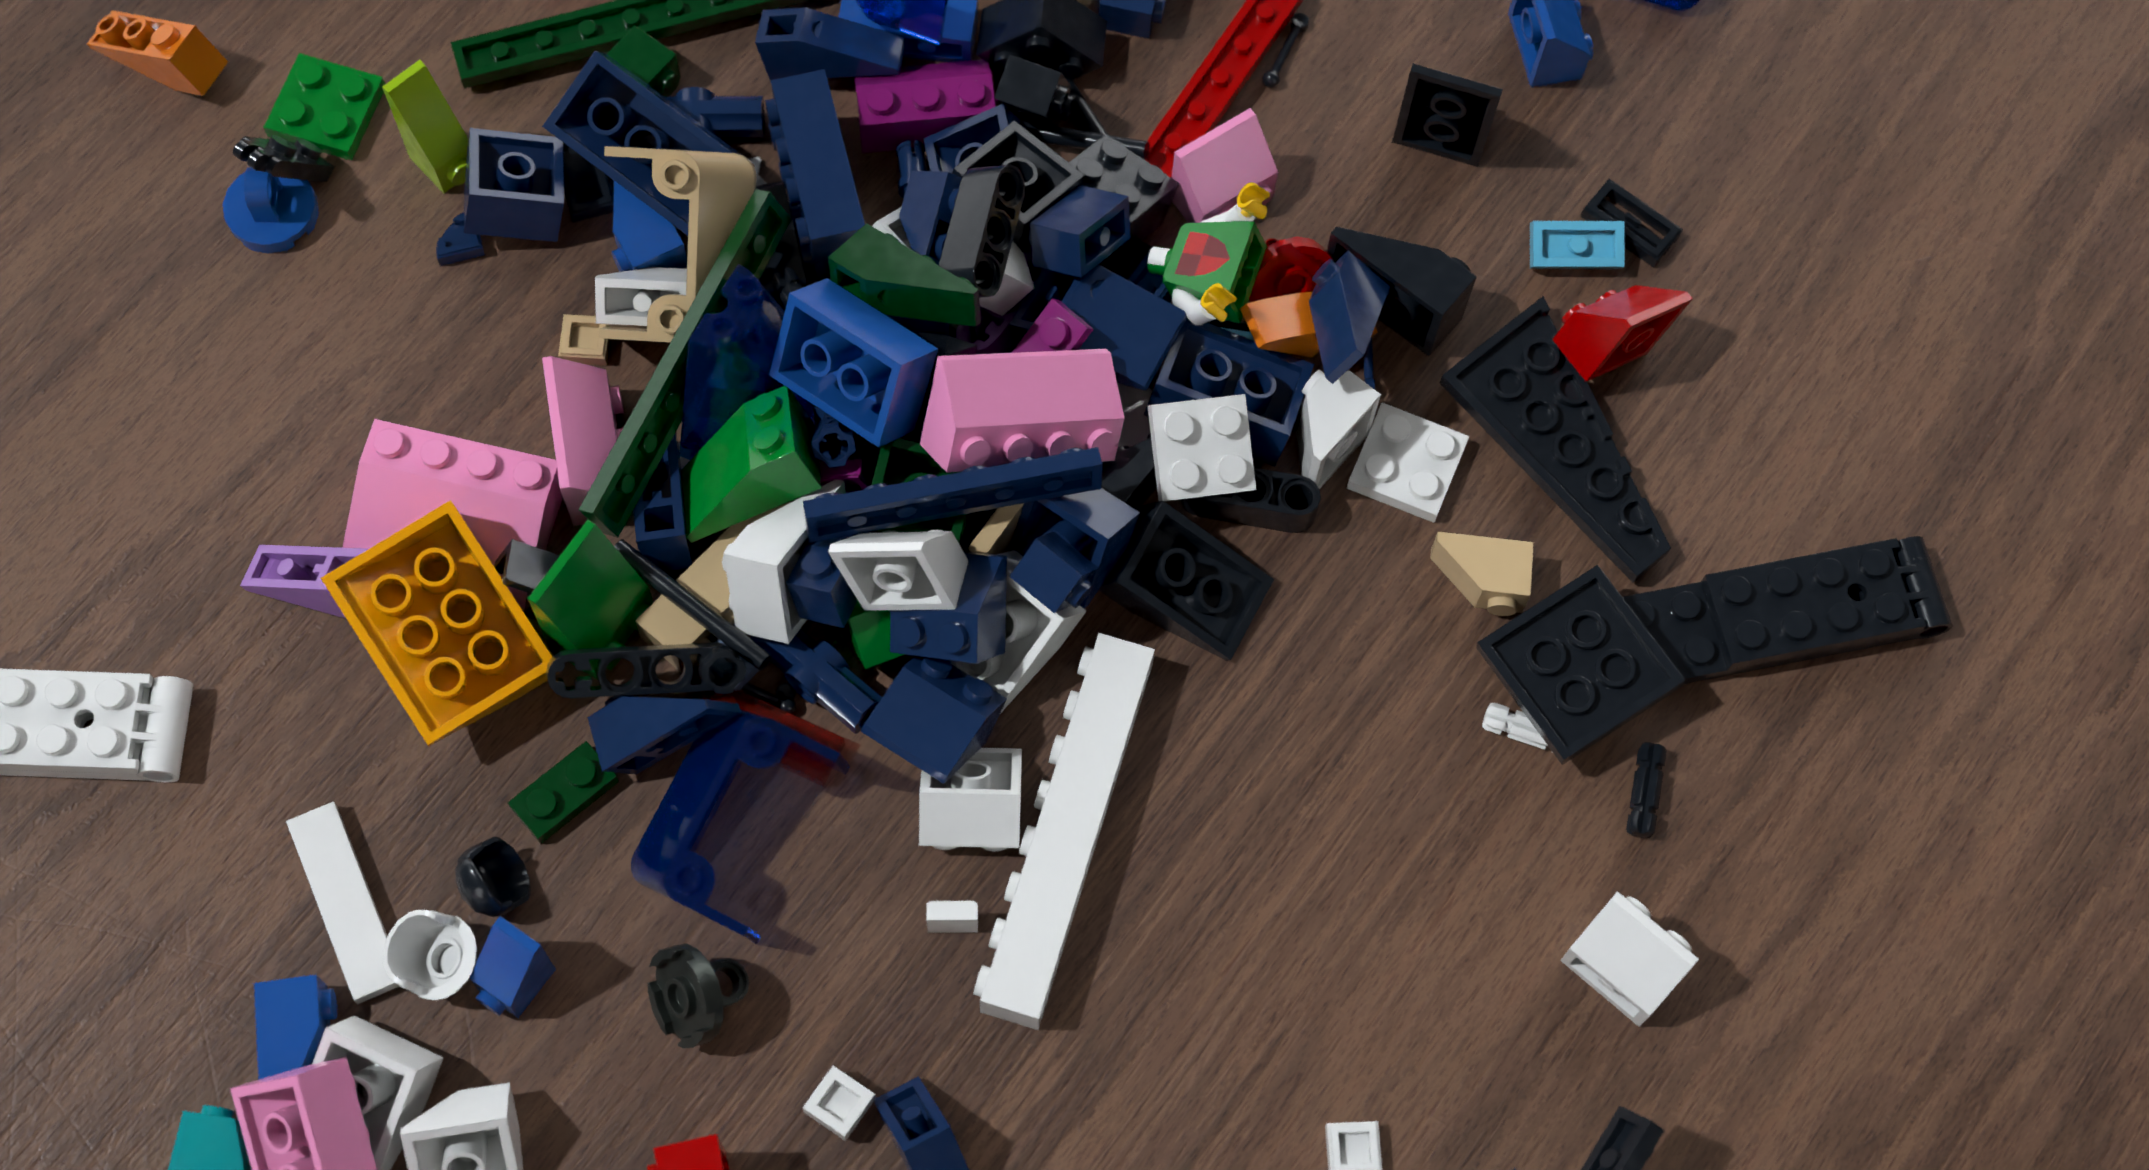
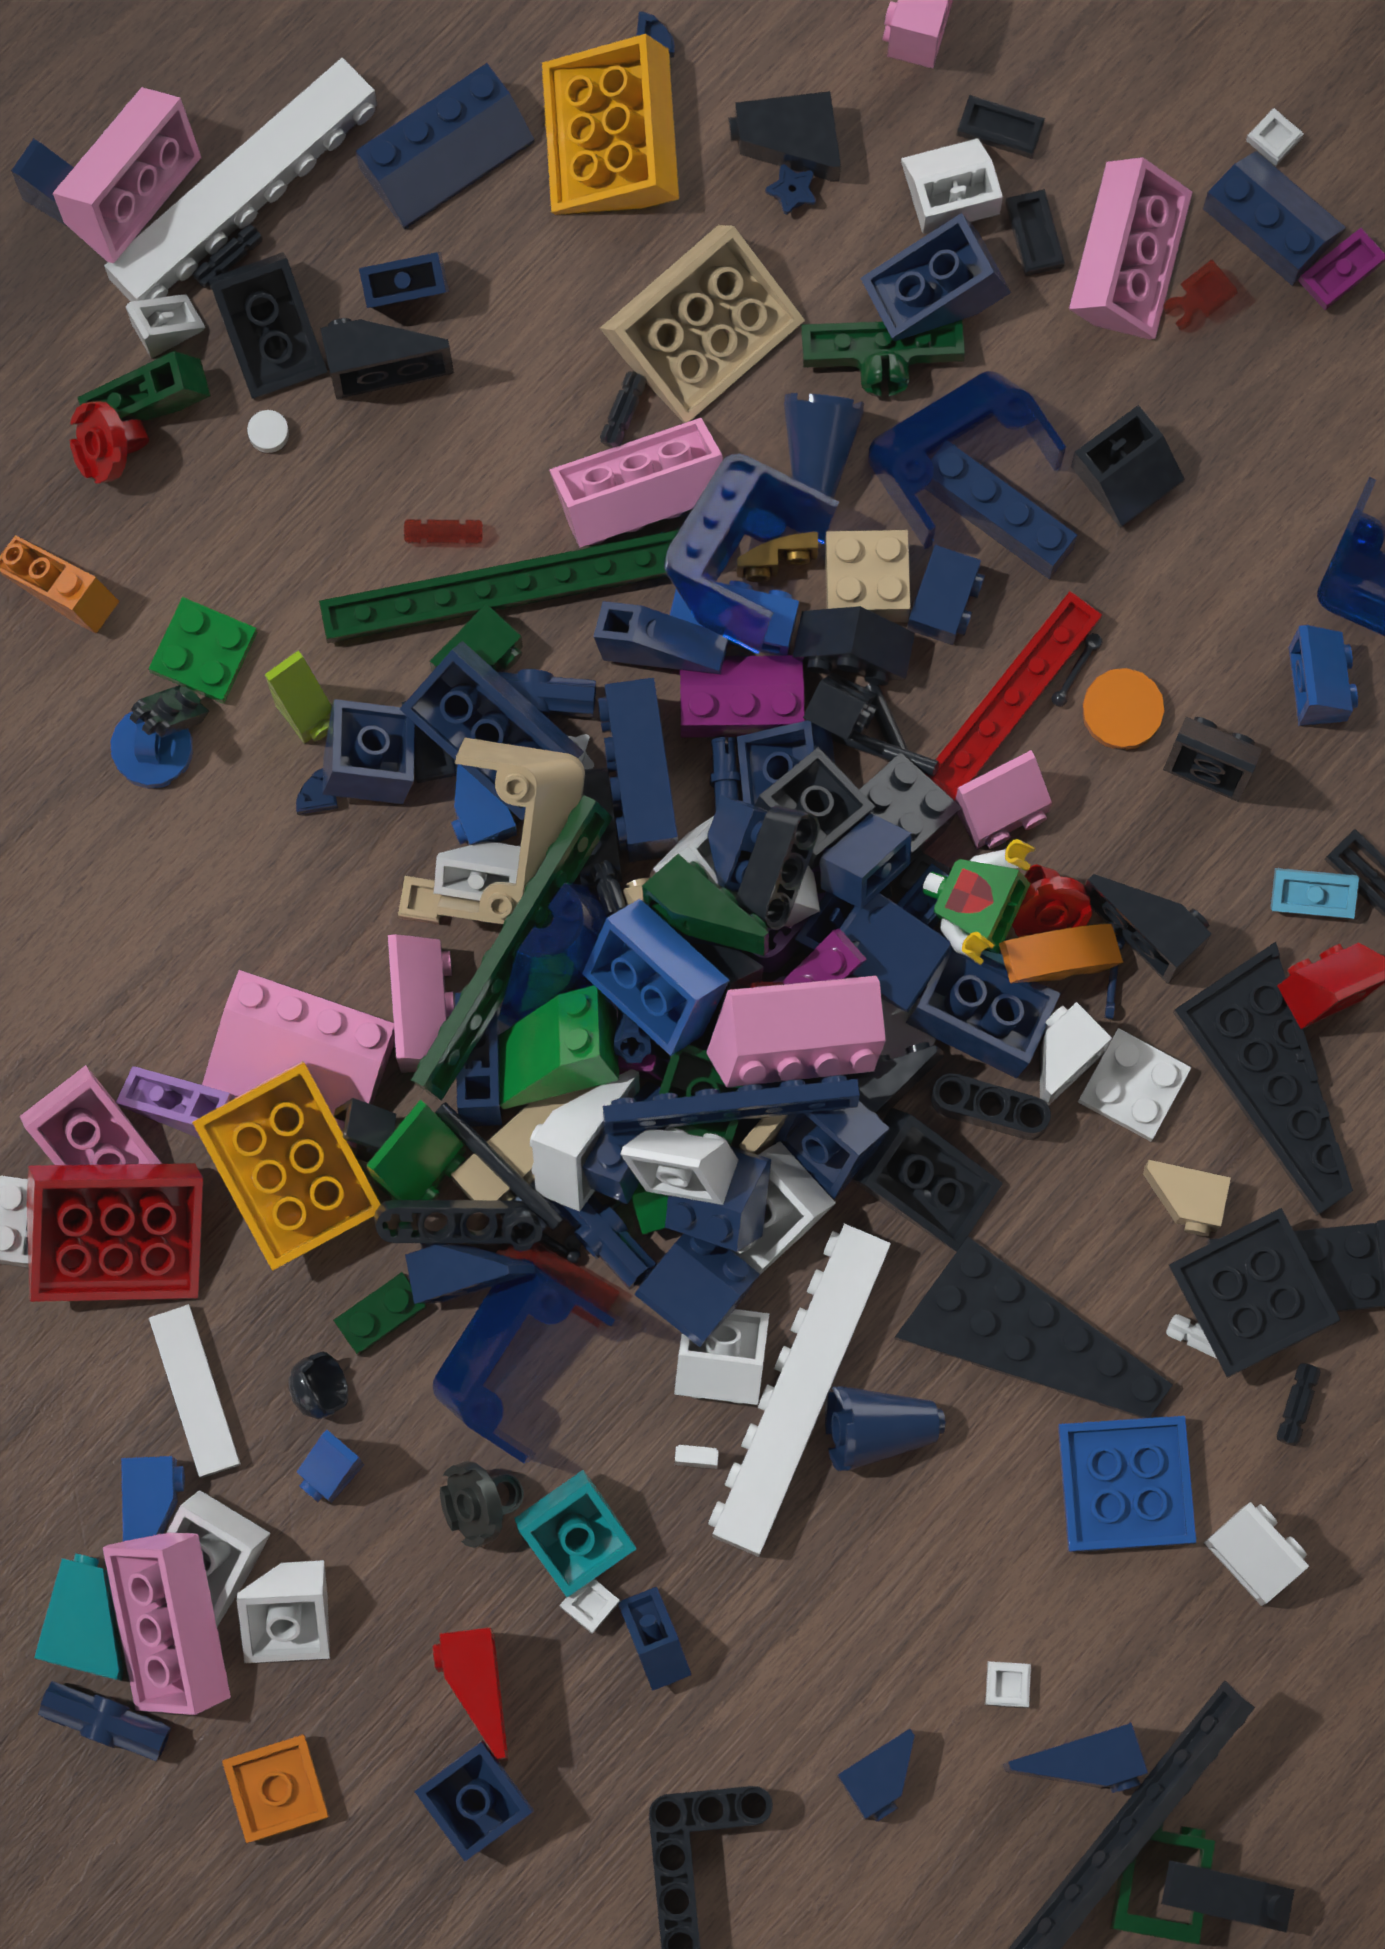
camera: 10 degrees right, 10 degrees up
(214, 631) = (85, 1126): none -> bright pink slope
(237, 724) = (114, 1231): none -> red slope
(430, 953) = (266, 1448): white helmet -> none
(814, 1020) = (574, 1533): none -> teal slope
(1055, 573) = (811, 1176): dark blue brick -> none
(1162, 857) = (877, 1425): none -> dark blue cone
(1201, 447) = (950, 1069): white plate -> none
(1309, 739) = (1011, 1326): none -> black wing
(1340, 83) = (1123, 709): none -> orange tile
(1345, 312) = (1090, 959): dark blue slope -> none
(1462, 899) = (1126, 1484): none -> blue plate

